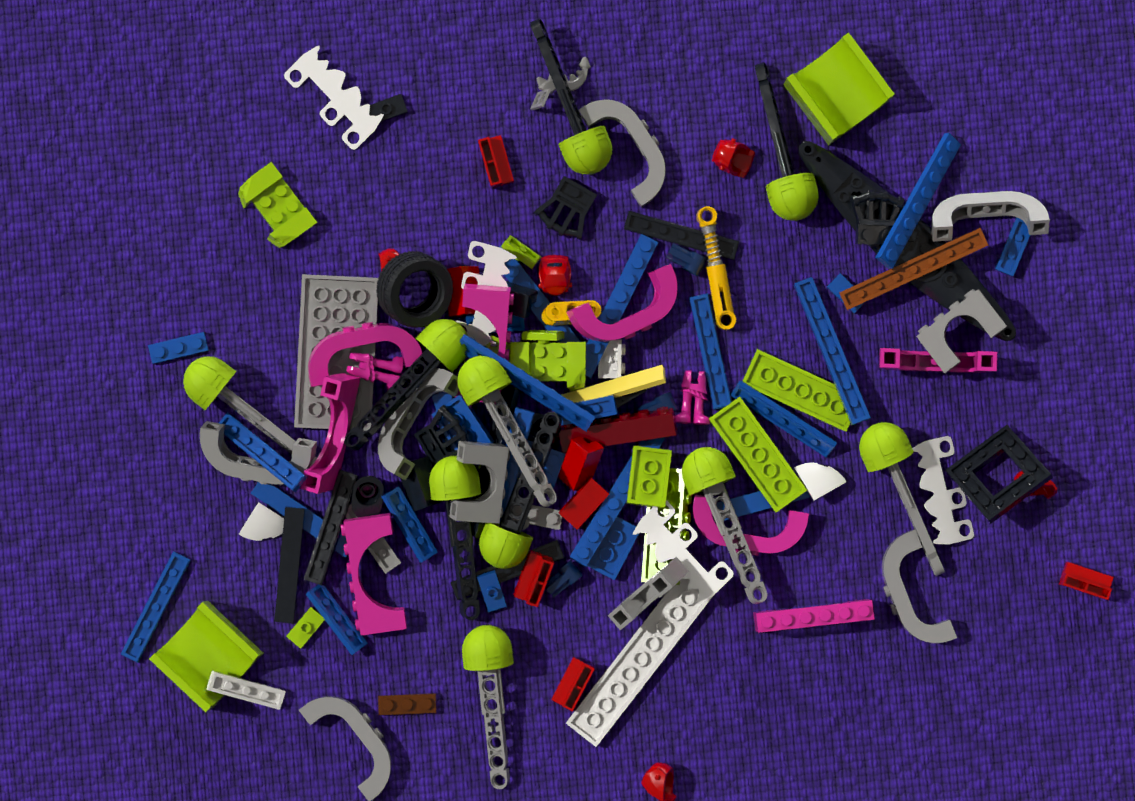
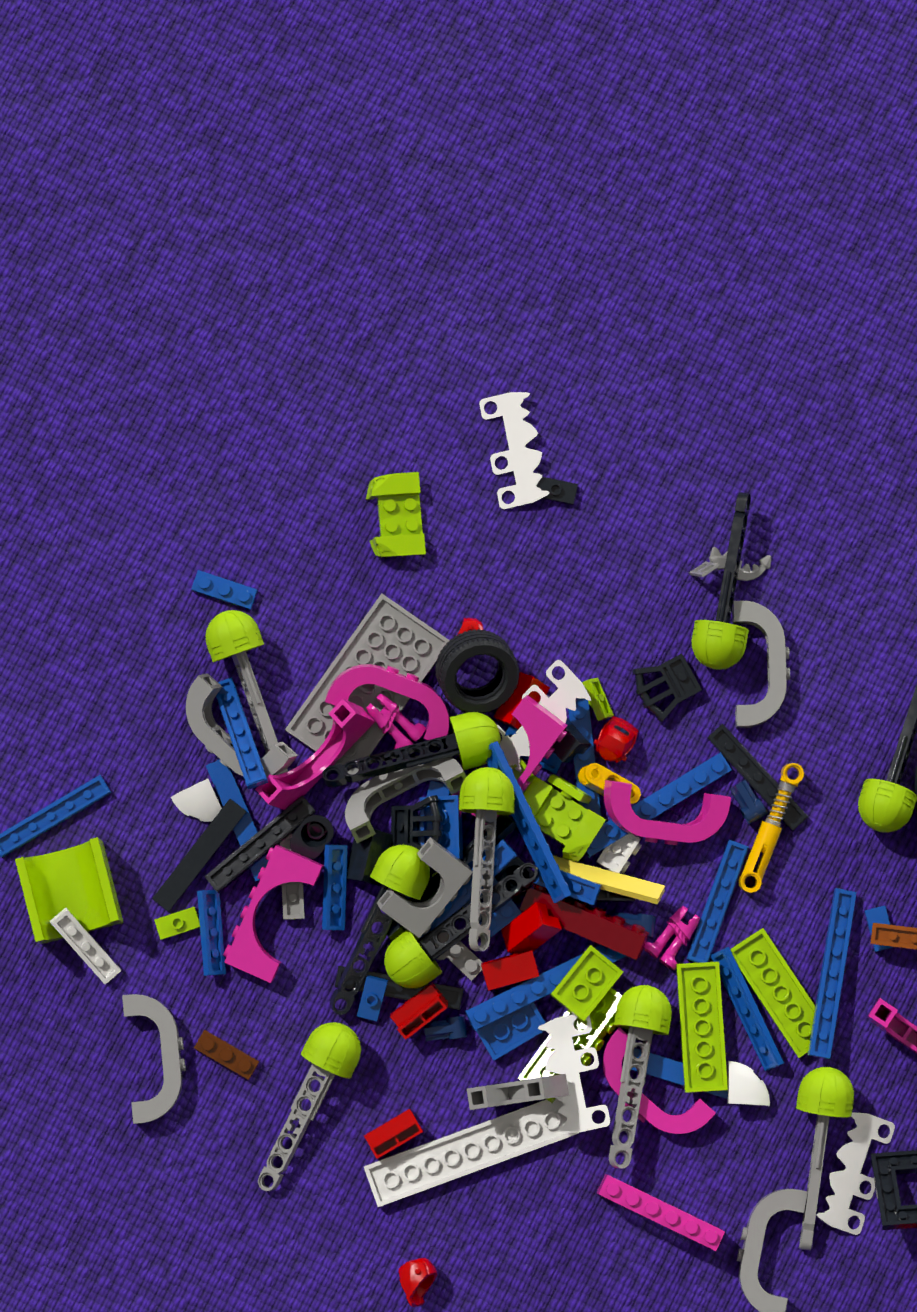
camera: 30 degrees right, 5 degrees down
(495, 161) = (626, 600): red piece -> none
(733, 157) = (851, 735): red helmet -> none

